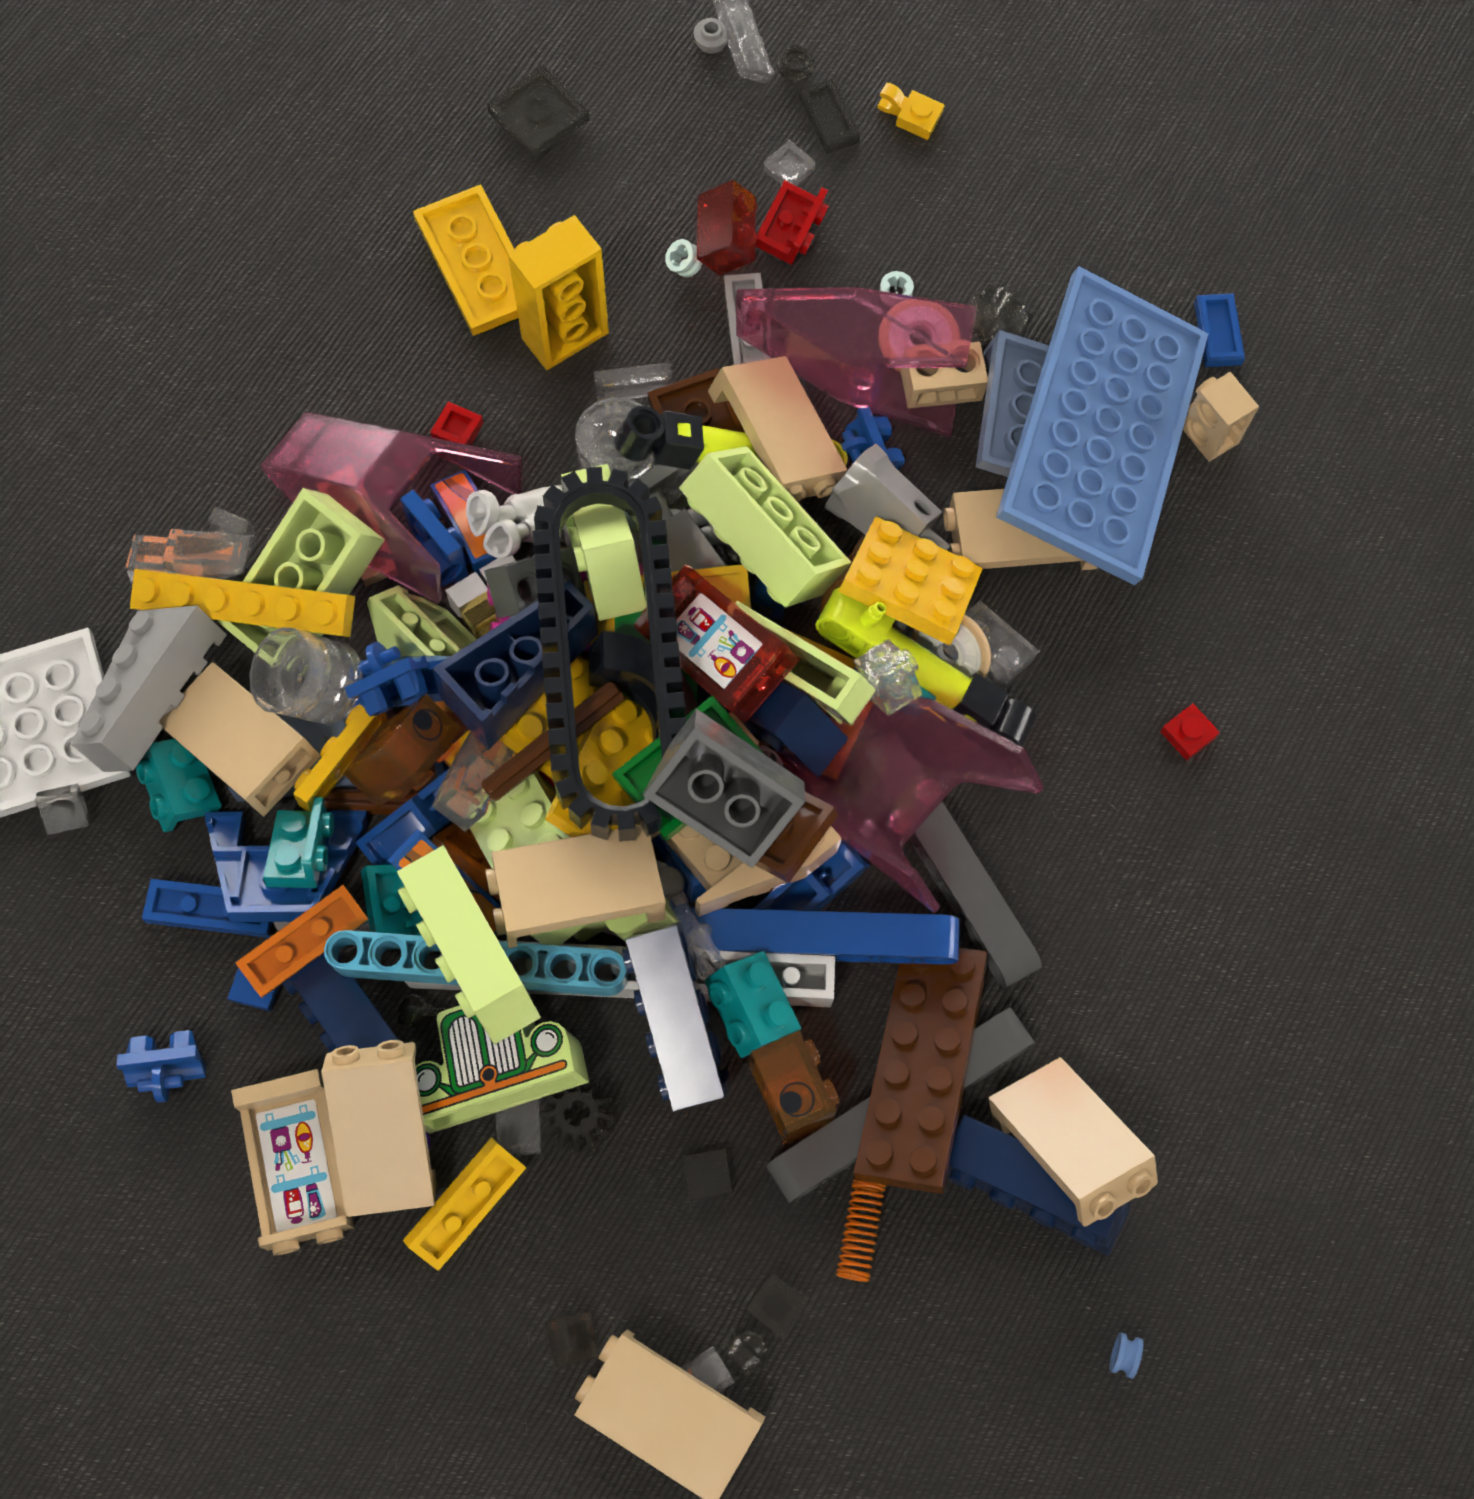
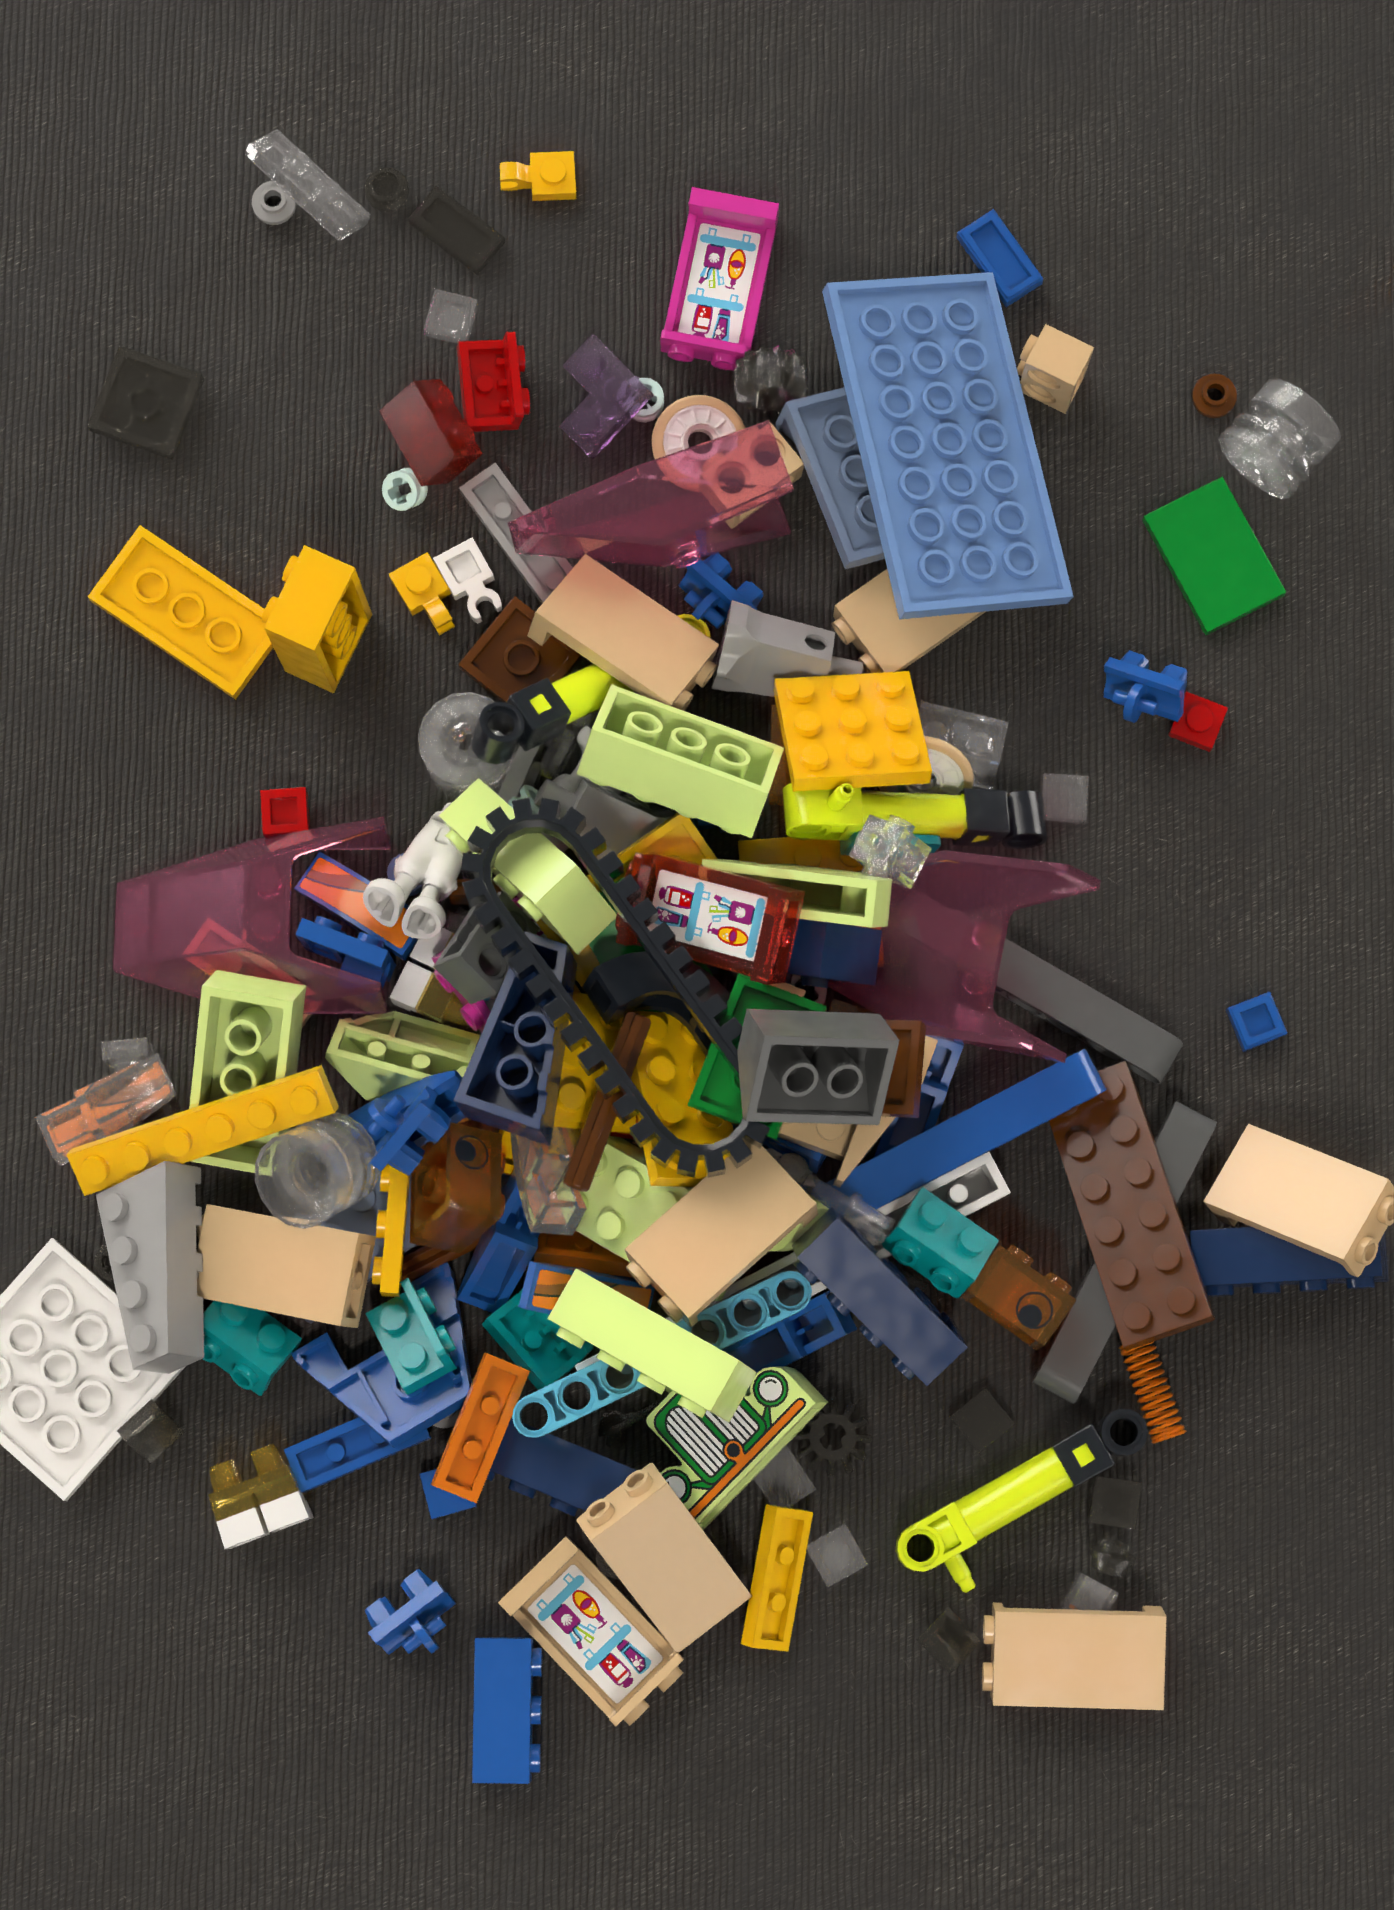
camera: 25 degrees left, 10 degrees up
(104, 910) = (236, 1504): none -> hips
(184, 1183) = (505, 1710): none -> blue brick
(524, 1215) = (836, 1555): none -> clear plate
(594, 1017) = (794, 1336): none -> blue slope
(631, 381) = (436, 661): clear tile -> none
(655, 332) = (423, 589): none -> yellow plate
(692, 339) = (467, 574): none -> white plate
(751, 1249) = (1017, 1493): none -> neon yellow piece
(876, 264) = (612, 398): none -> clear purple plate
(1002, 235) = (719, 278): none -> panel
(1052, 732) = (1065, 797): none -> clear tile
(1111, 984) = (1256, 1021): none -> blue tile
(1160, 681) = (1144, 690): none -> blue hips
(1269, 619) = (1214, 556): none -> green tile
(1325, 511) = (1209, 407): none -> reddish brown plate
(1370, 553) = (1279, 438): none -> clear wheel

